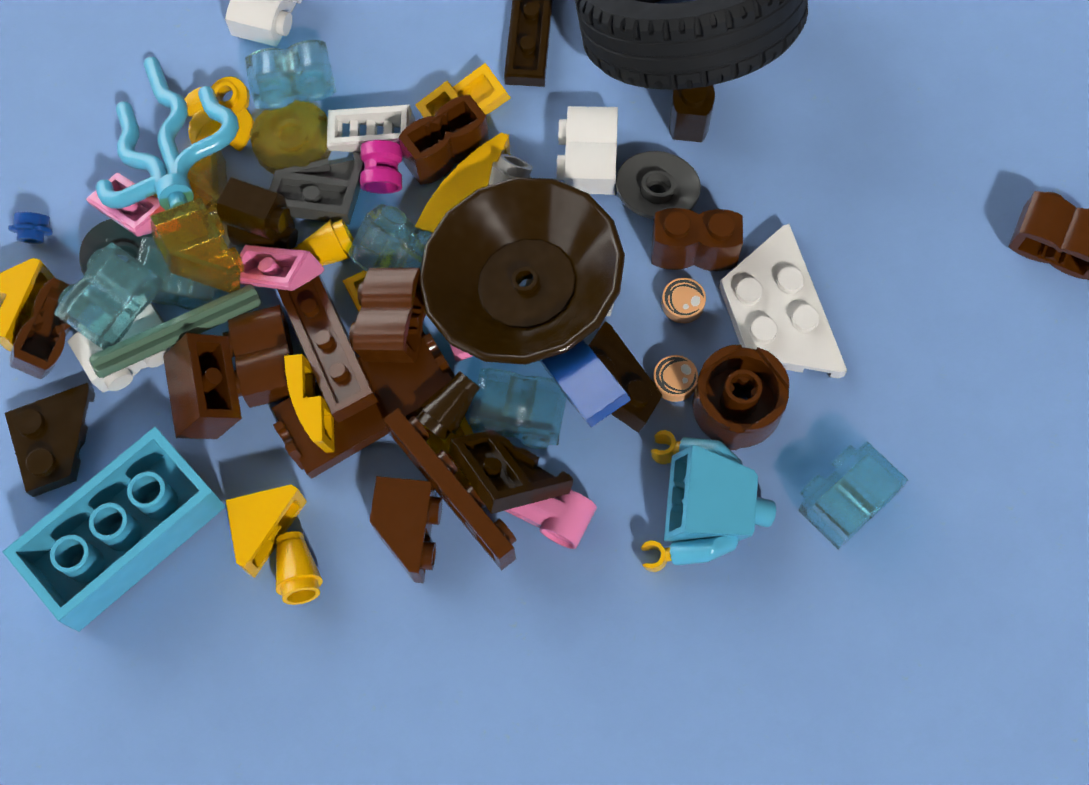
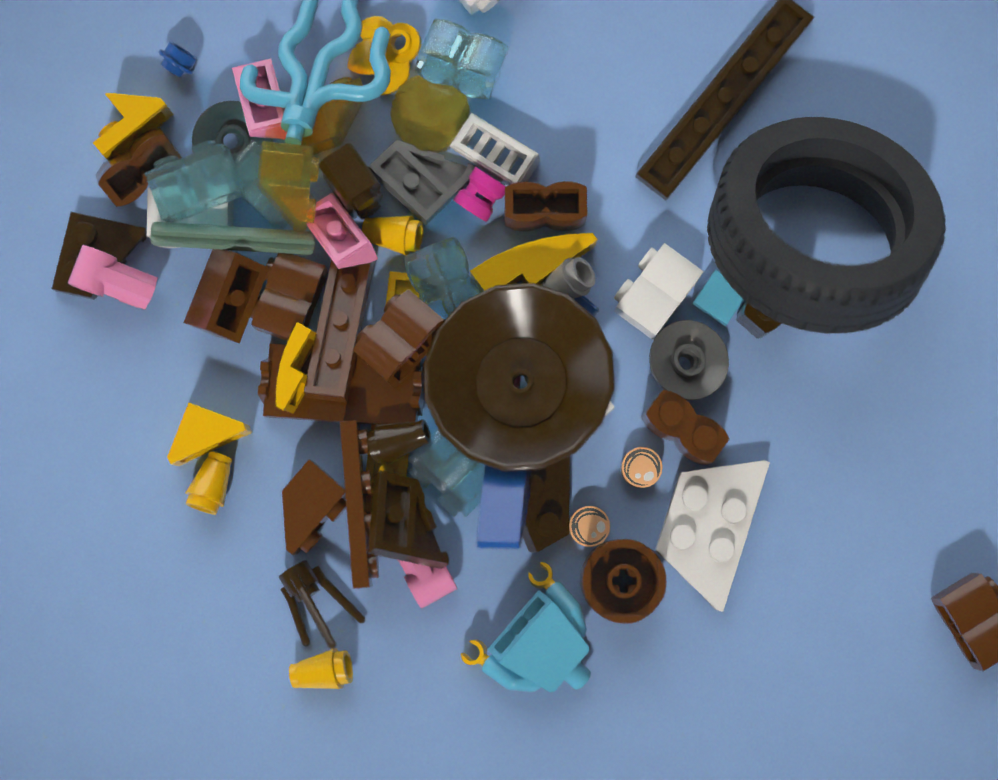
camera: 30 degrees right, 15 degrees up
(66, 442) = (103, 275): none -> bright pink piece
(113, 530) = (97, 368): medium azure brick -> none
(449, 600) = (300, 585): none -> dark brown plant
(479, 84) = (597, 171): yellow slope -> none
(522, 670) = (322, 671): none -> yellow cone
(646, 127) = (718, 299): none -> medium azure tile
(851, 494) = (651, 709): clear light blue brick -> none

